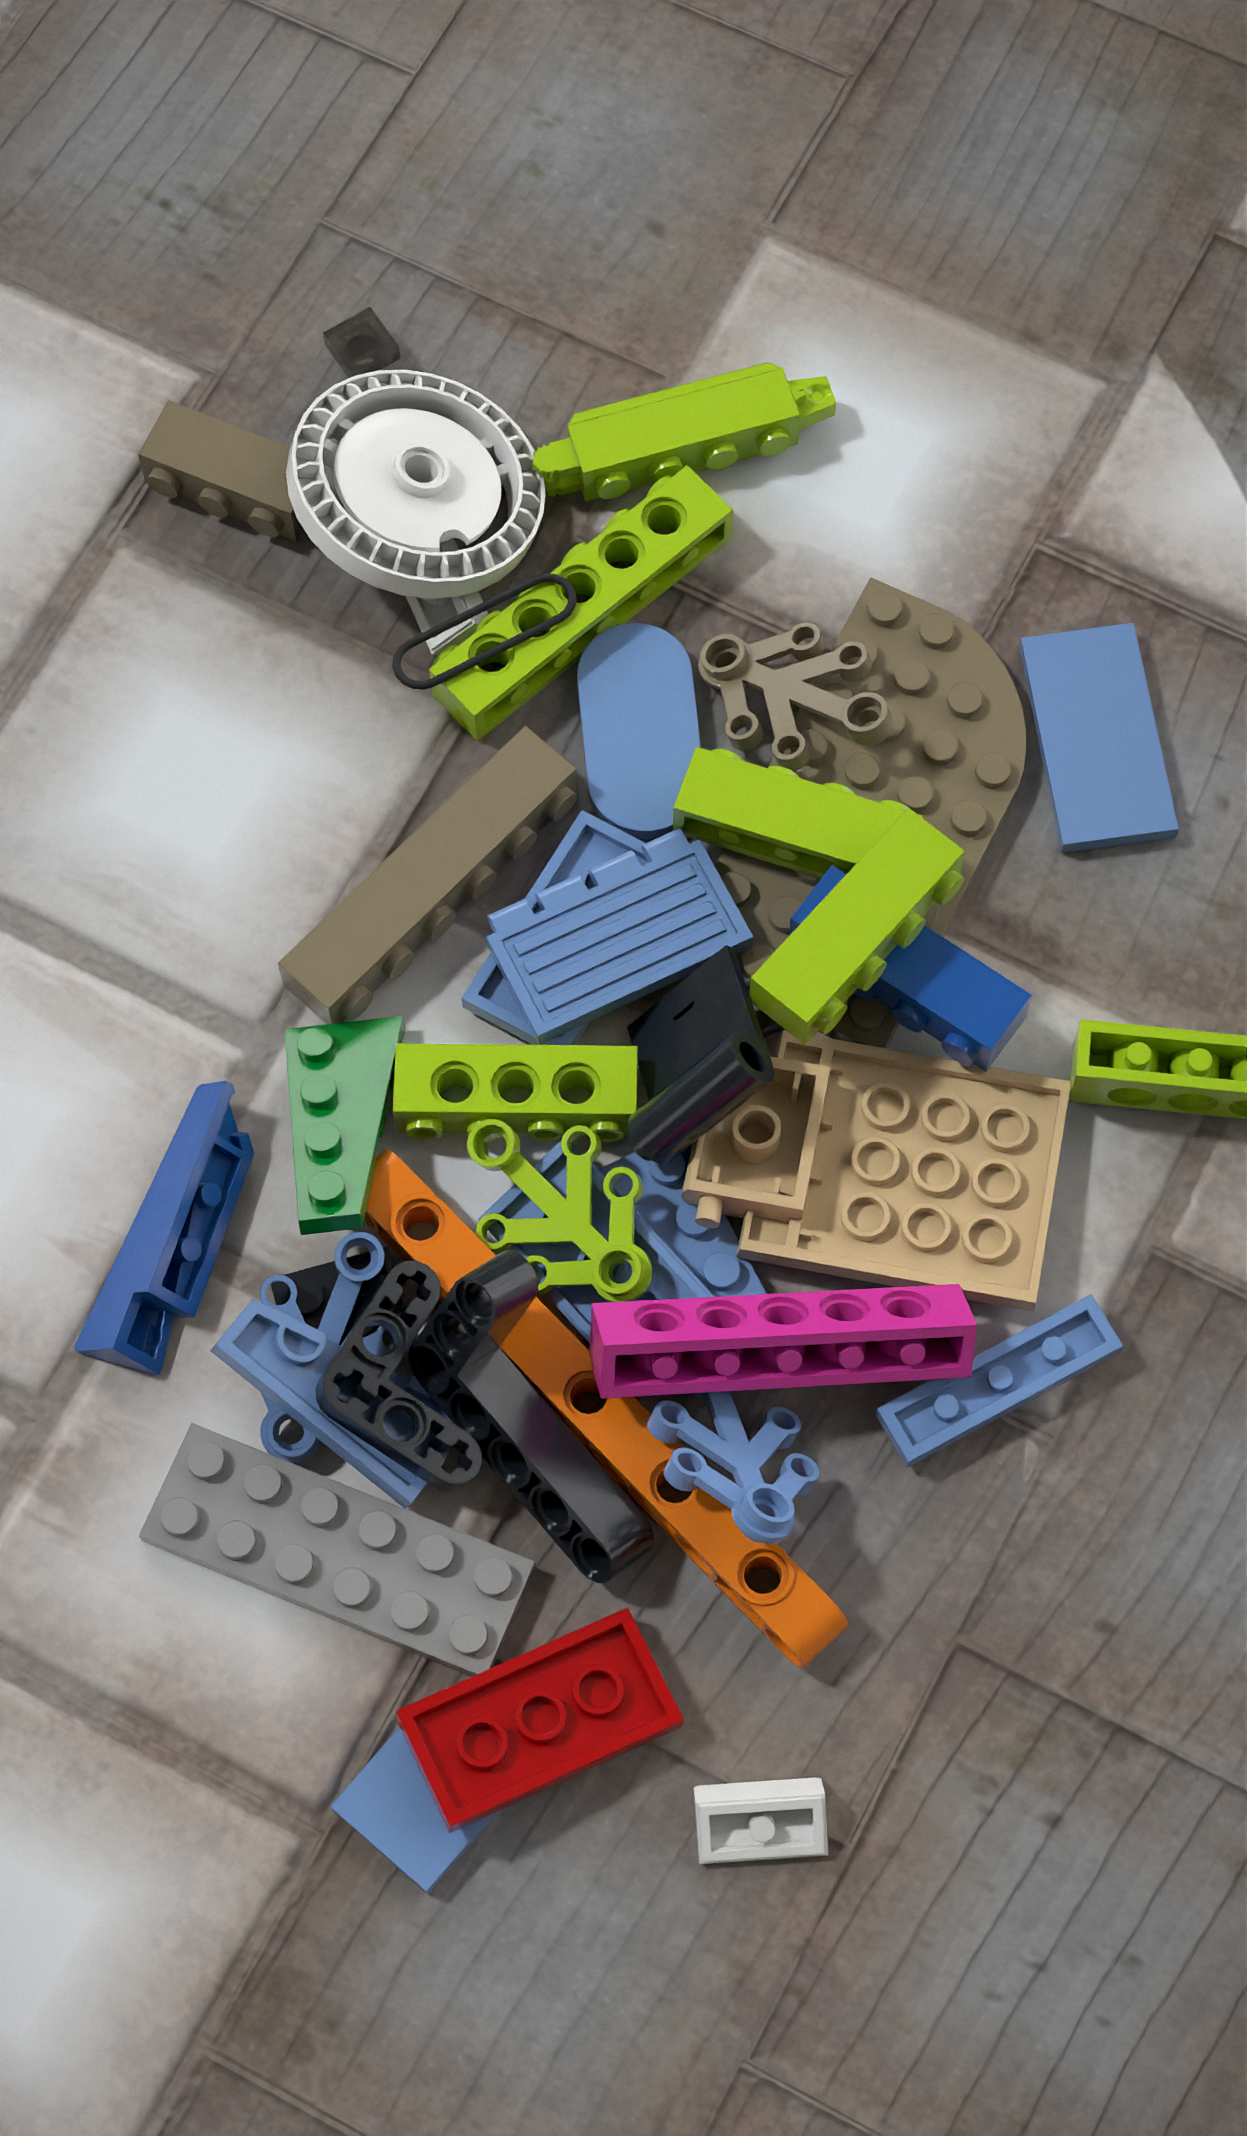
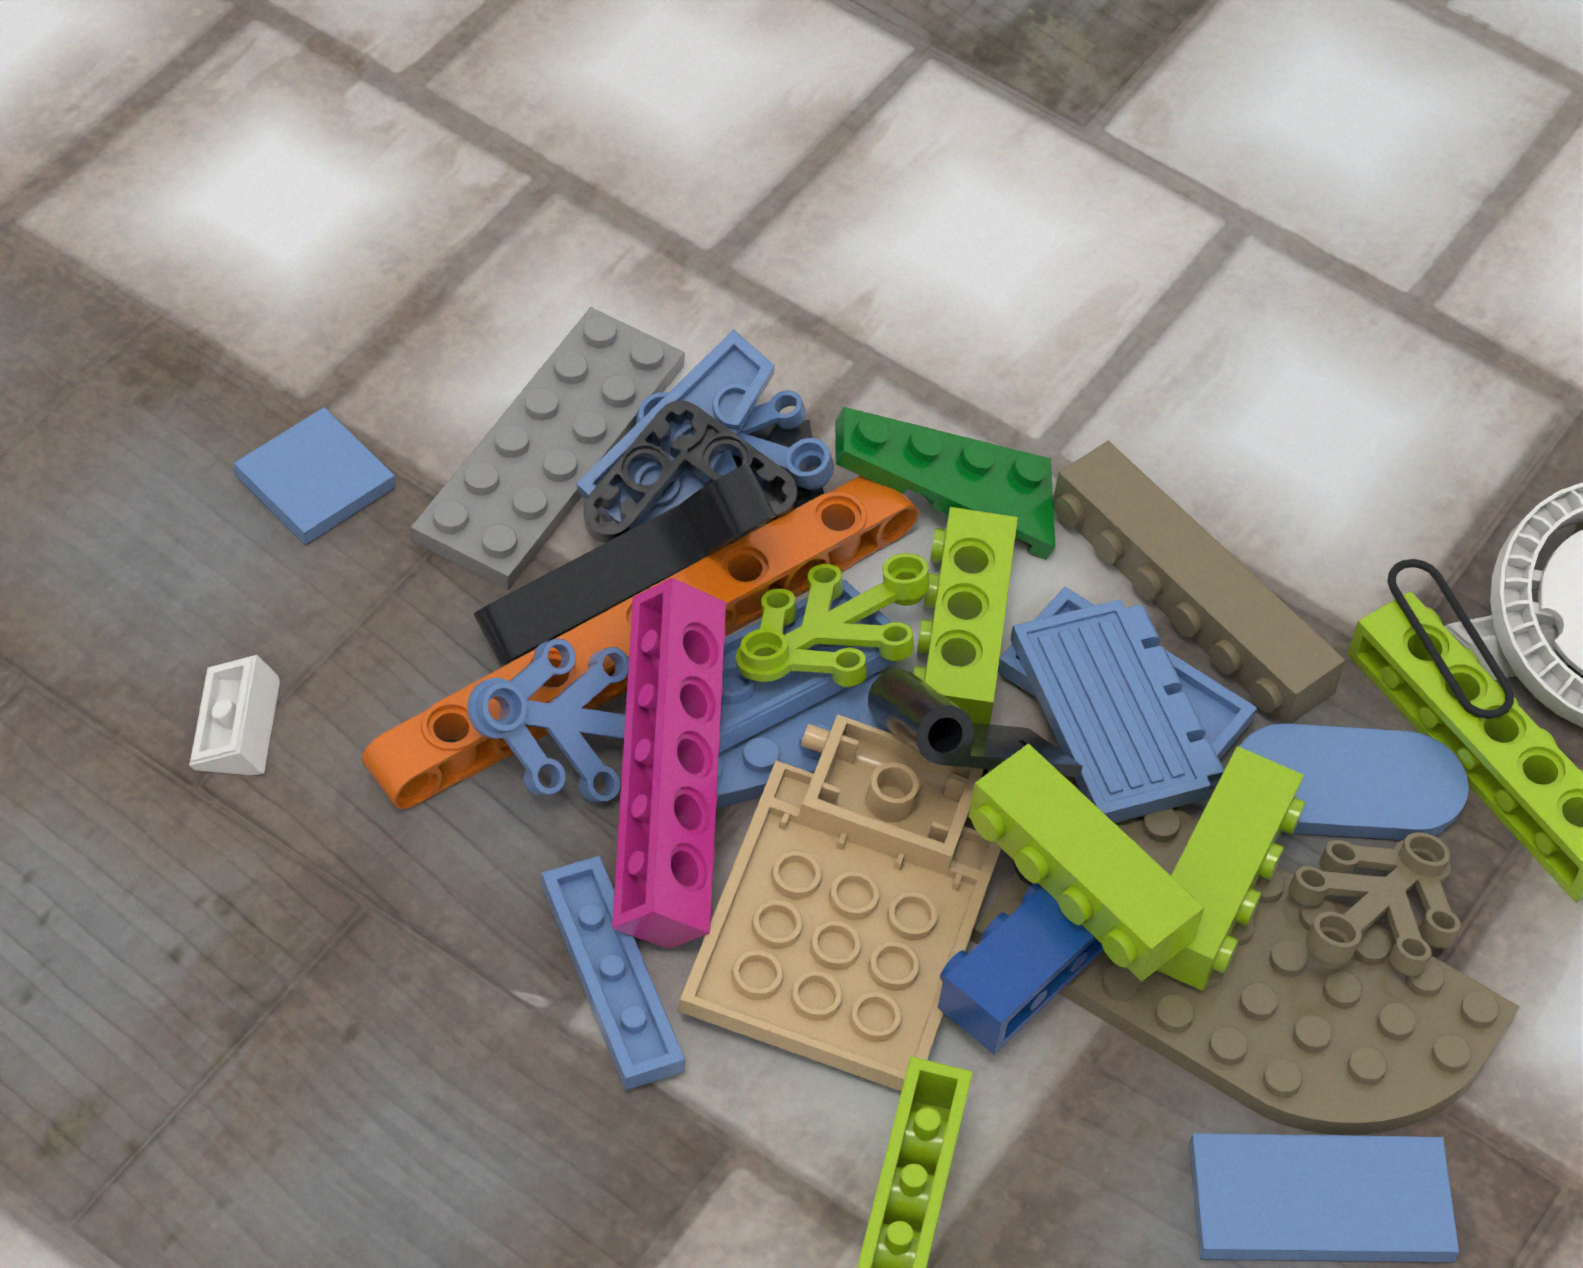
camera: 90 degrees right, 15 degrees down
(172, 1237) = (861, 362): blue wedge -> none
(538, 1719) = (361, 554): red plate -> none

